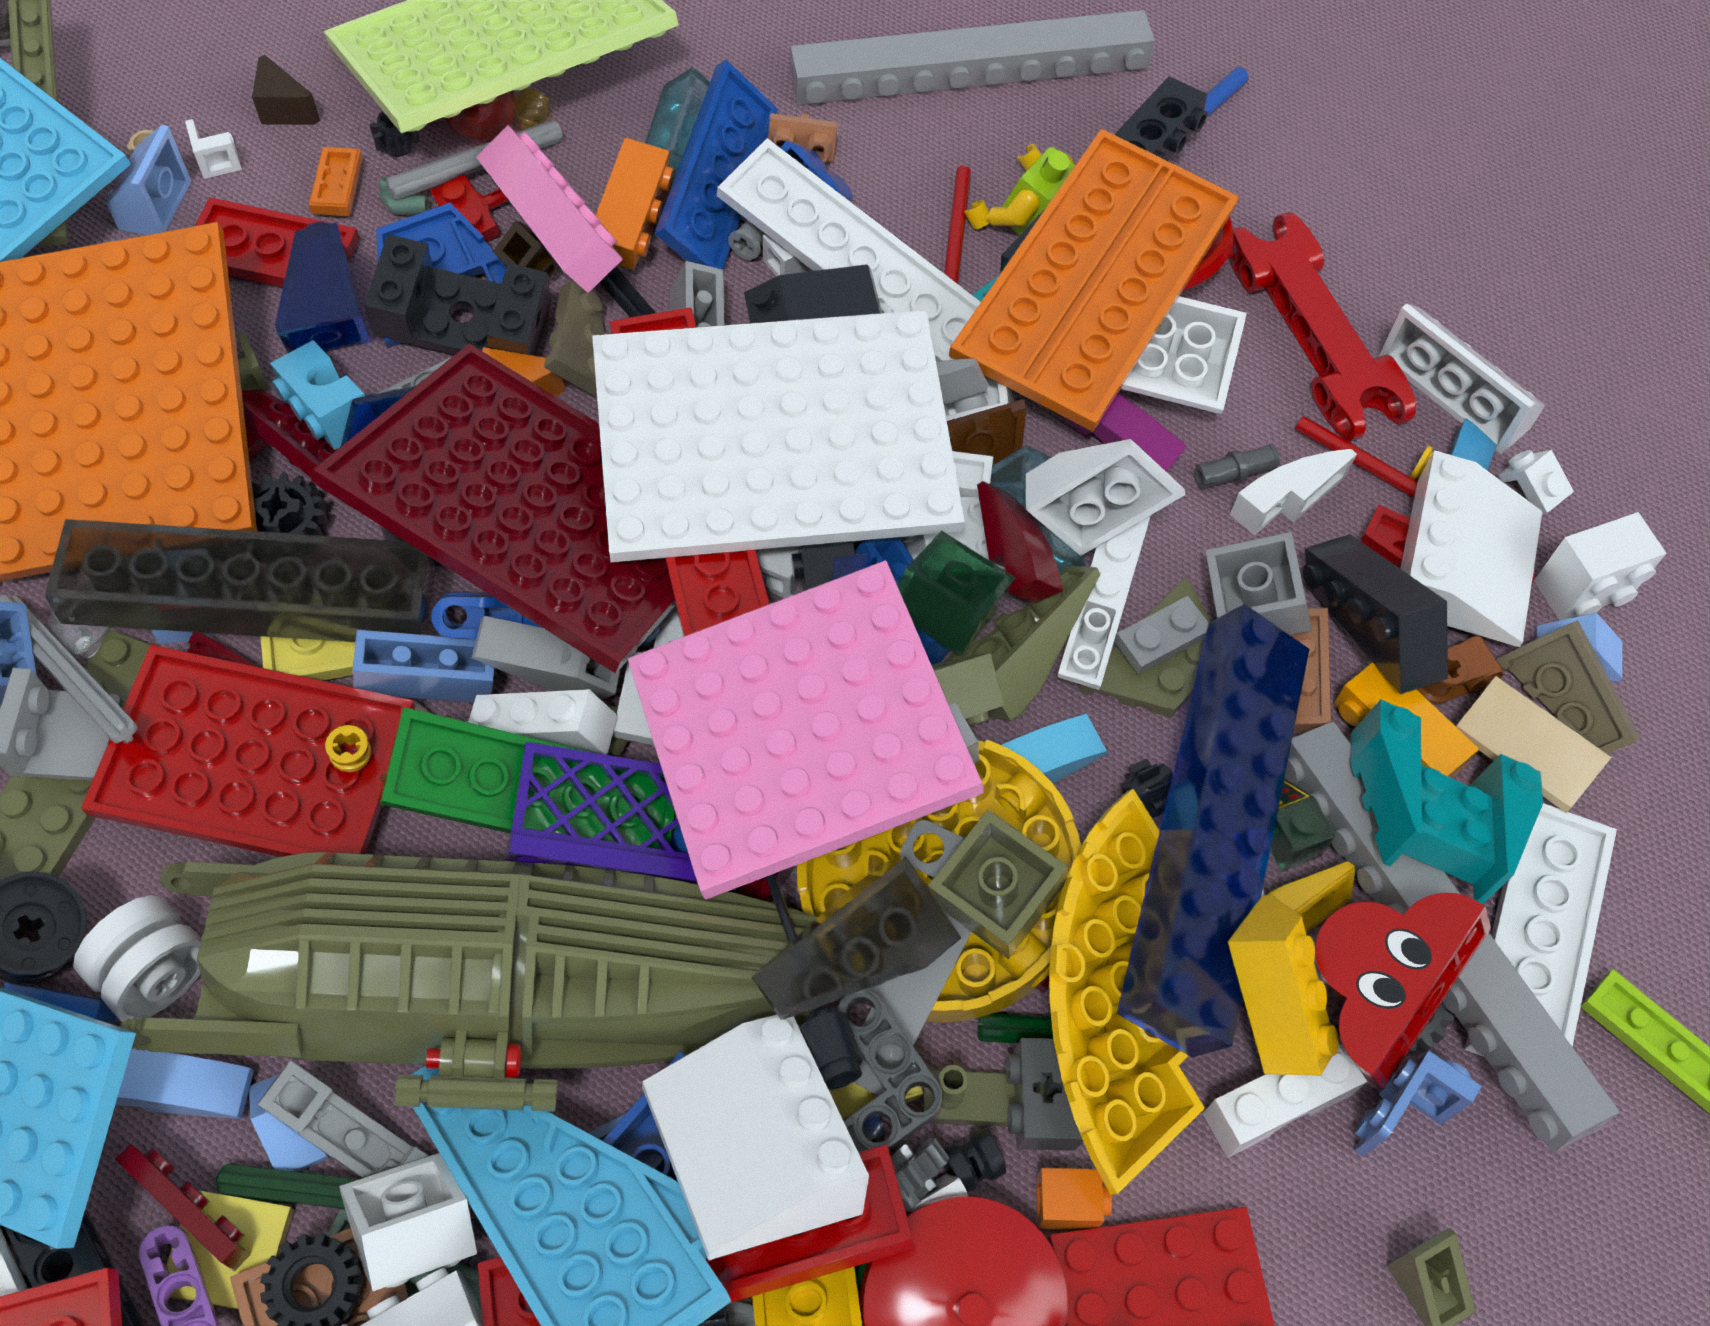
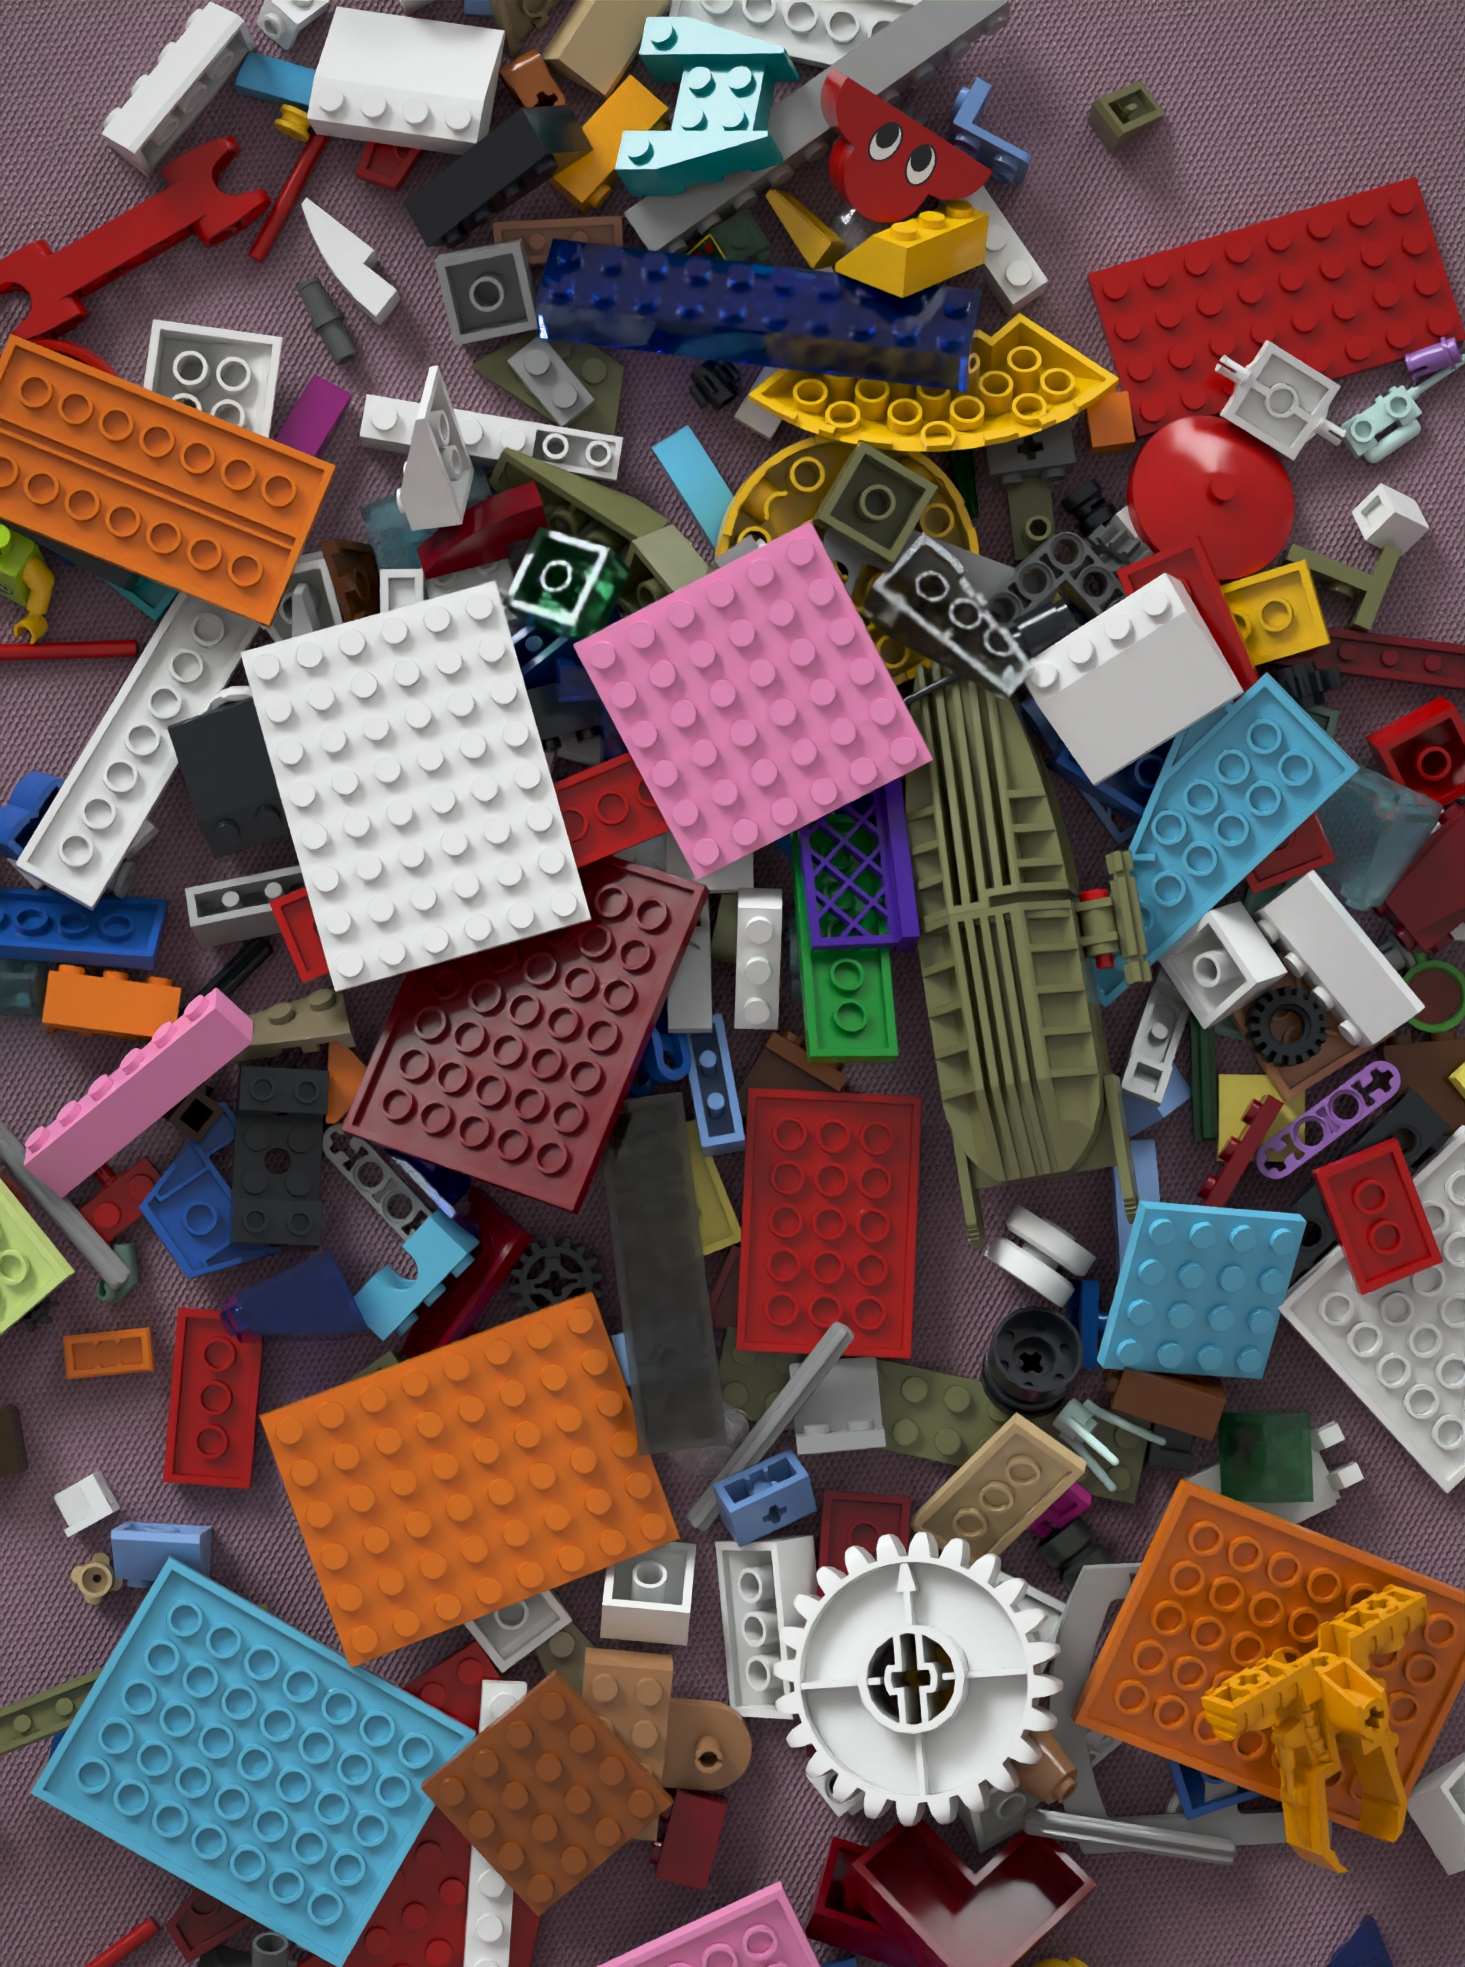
camera: 95 degrees left, 25 degrees up
(346, 761) = (826, 1127): yellow bush -> none

